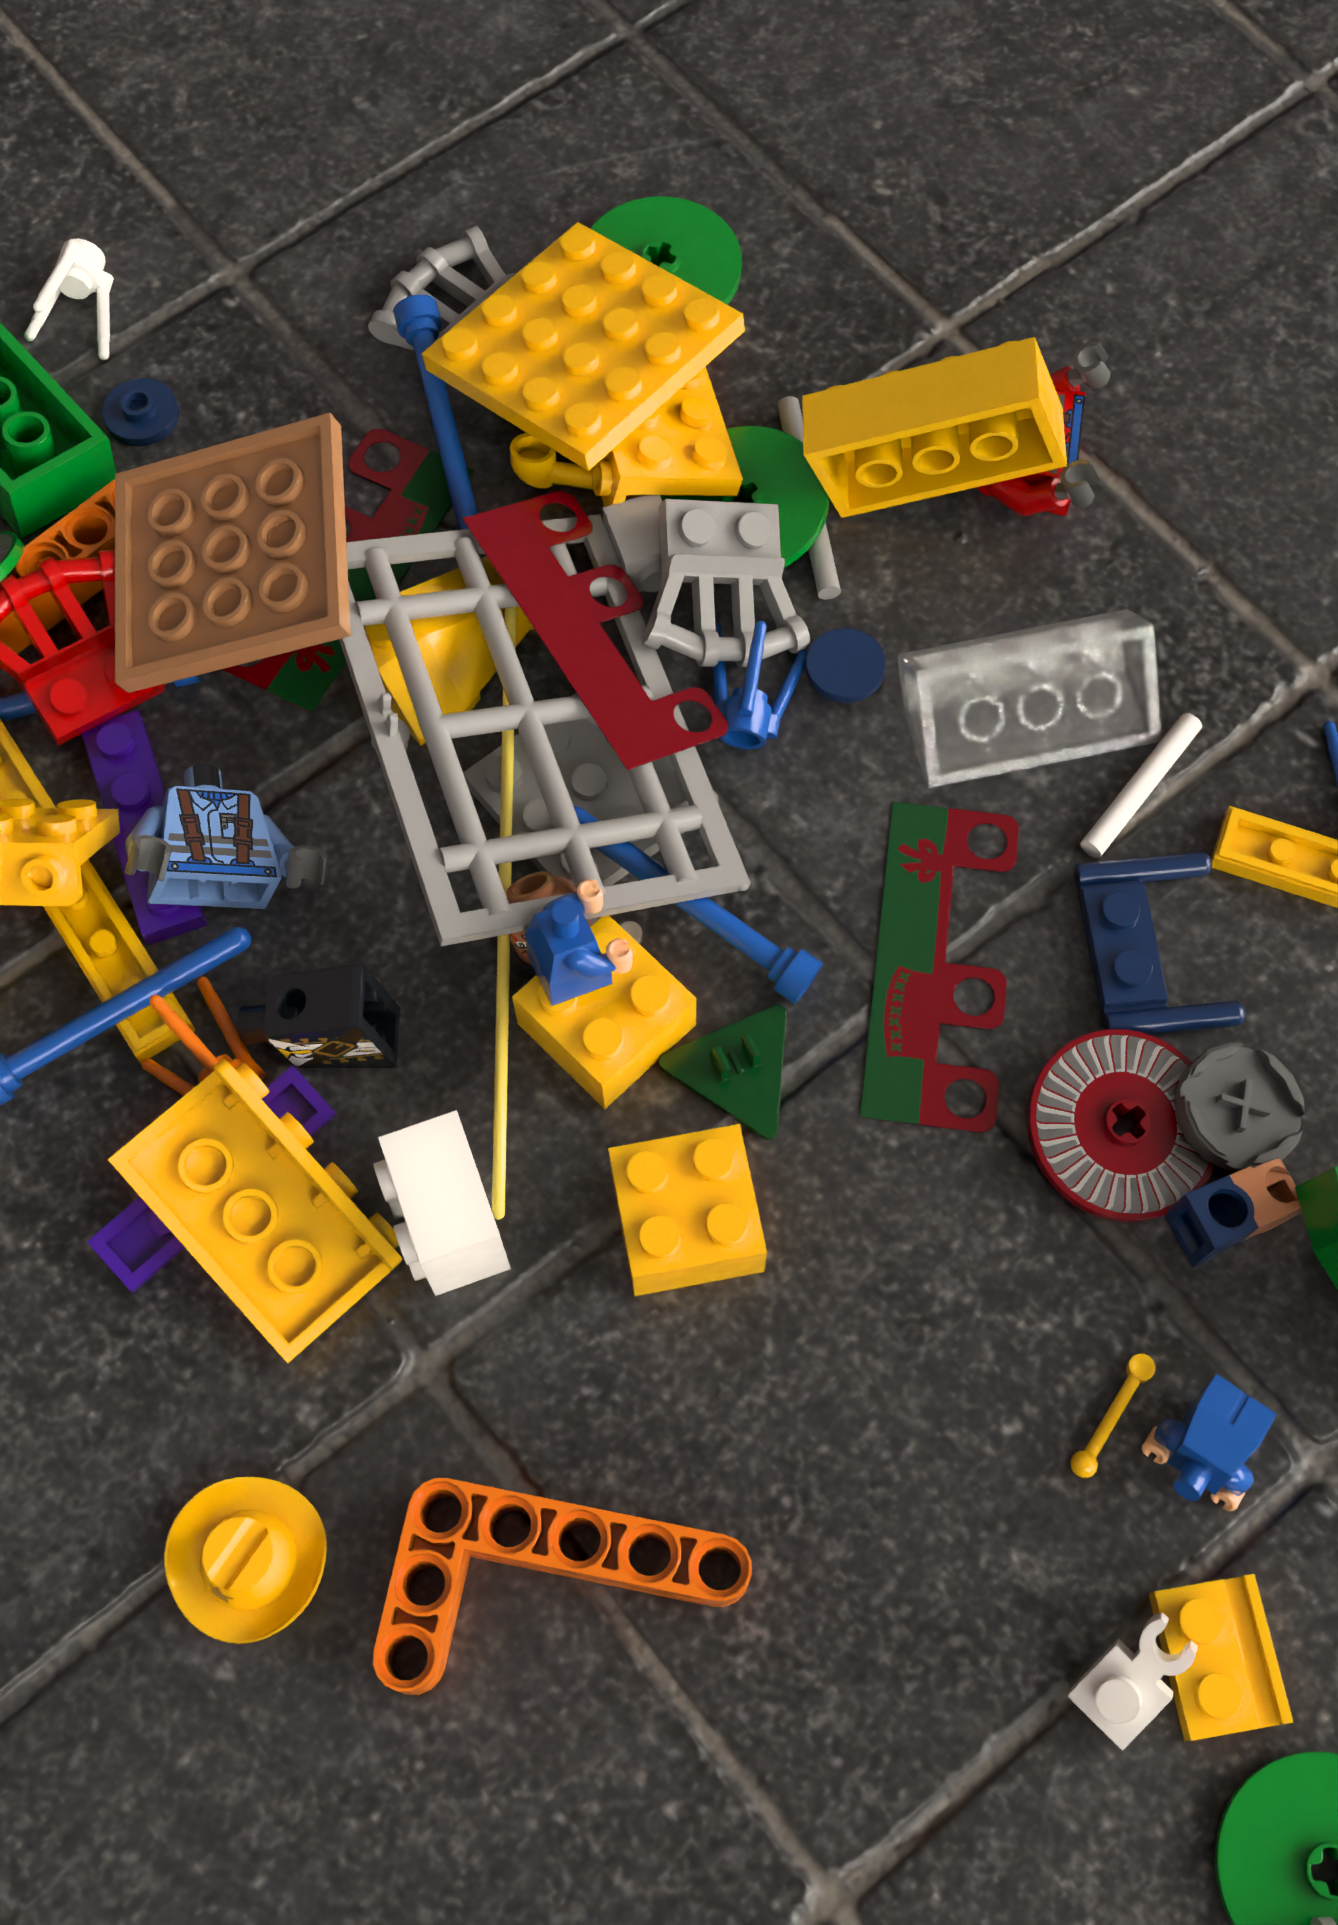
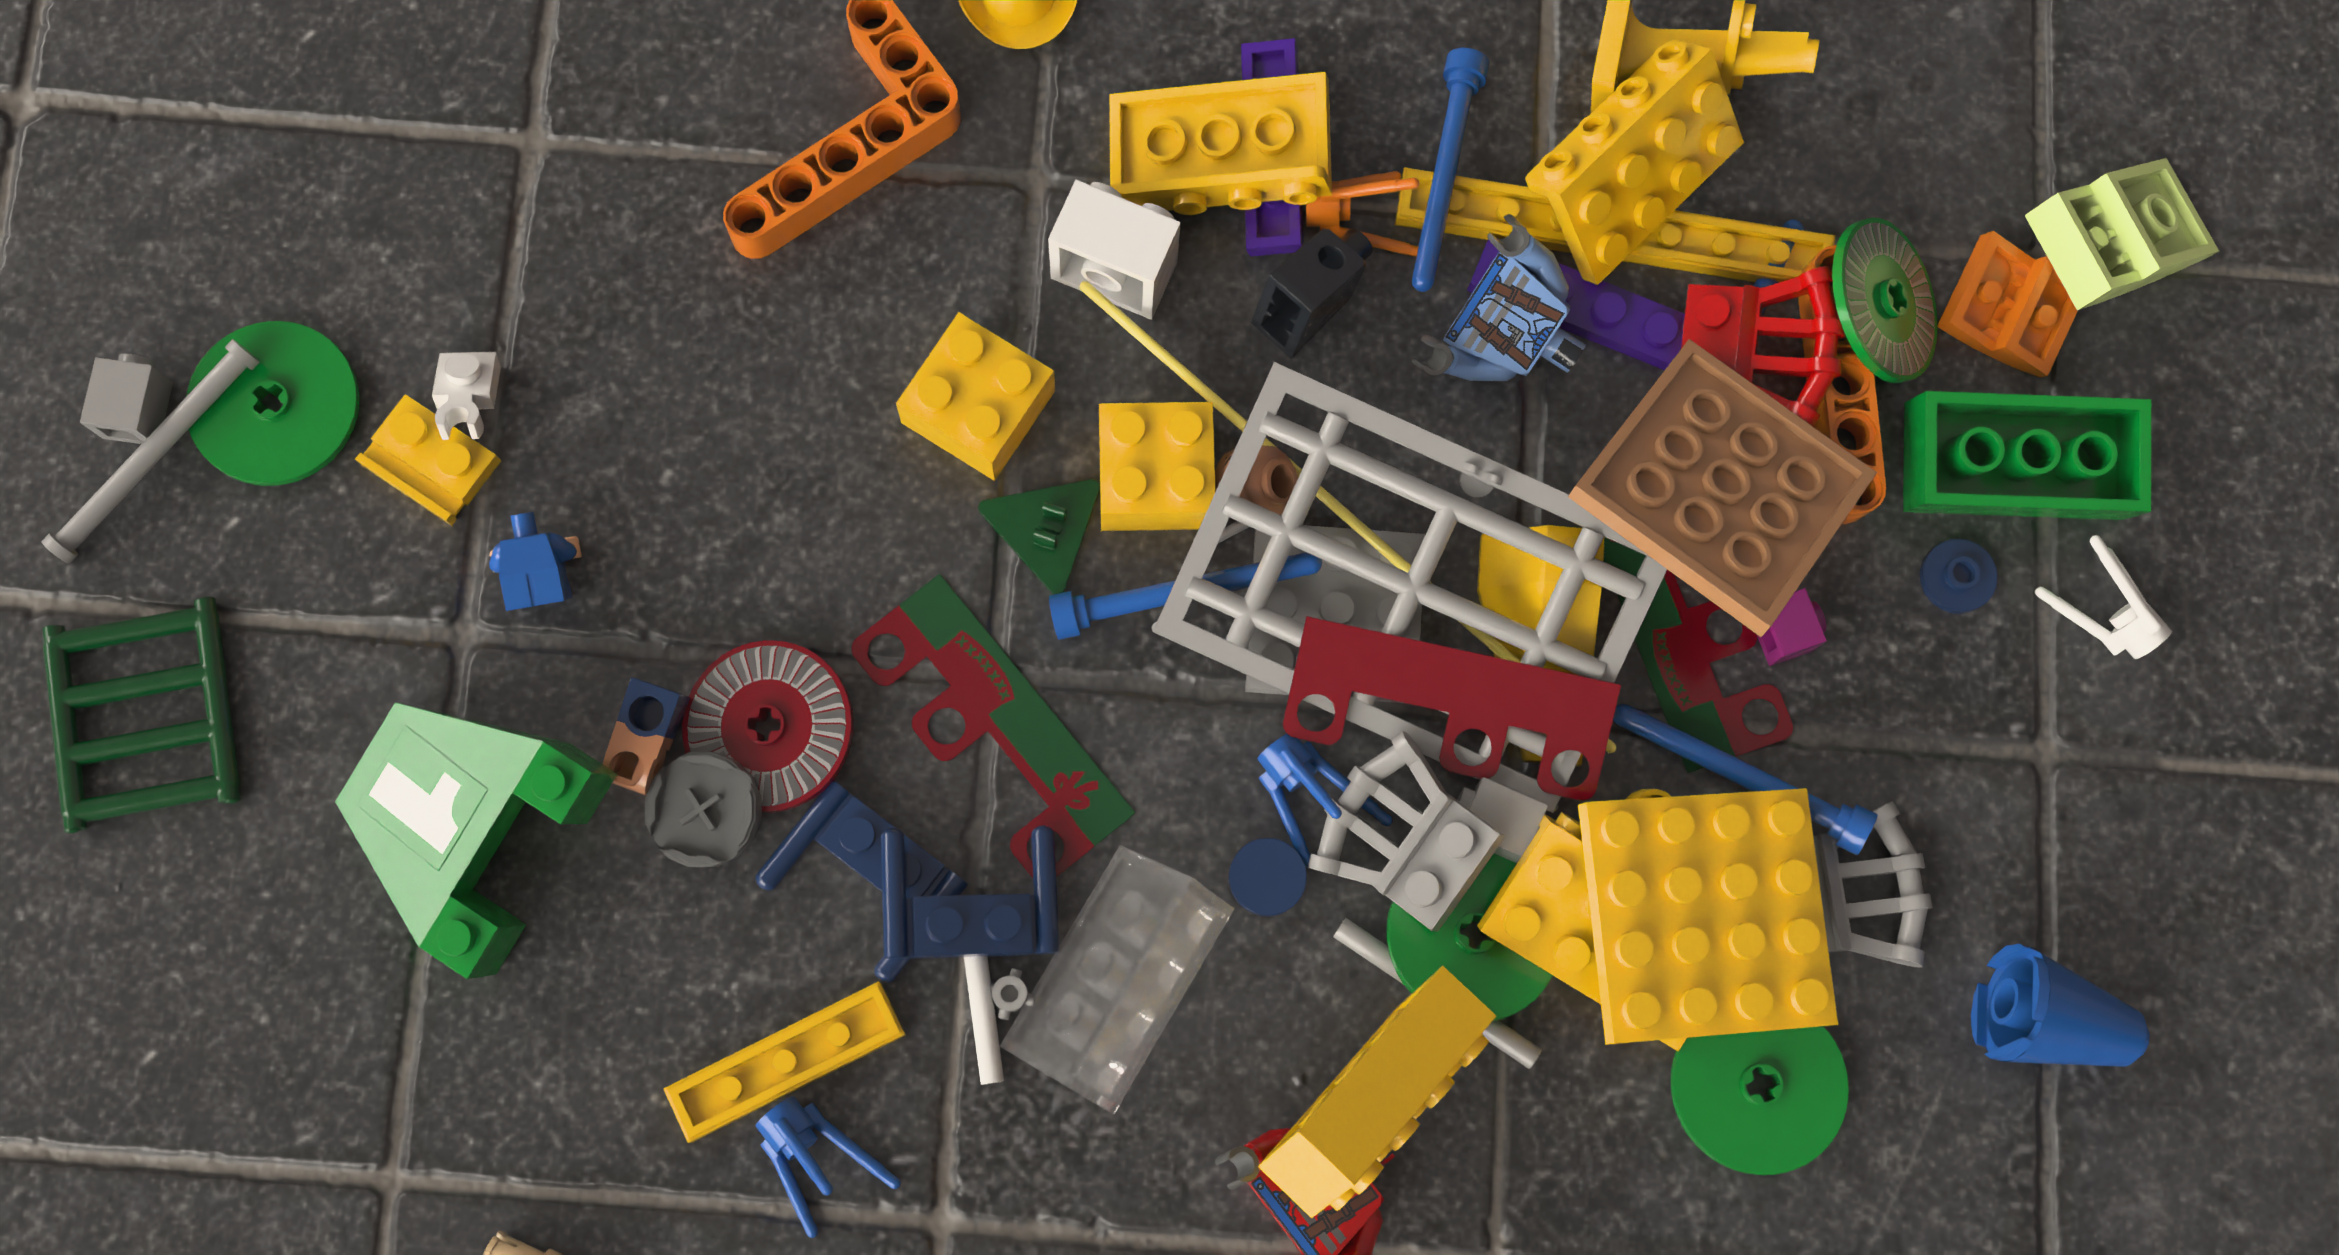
camera: 125 degrees right, 10 degrees up
(440, 130) = (2052, 1015): none -> blue cone
(566, 949) = (1201, 446): blue piece -> none
(1104, 825) = (969, 922): none -> dark blue plate
(1118, 764) = (1010, 994): none -> light grey piece
(1139, 1370) = (619, 582): yellow hinge -> none

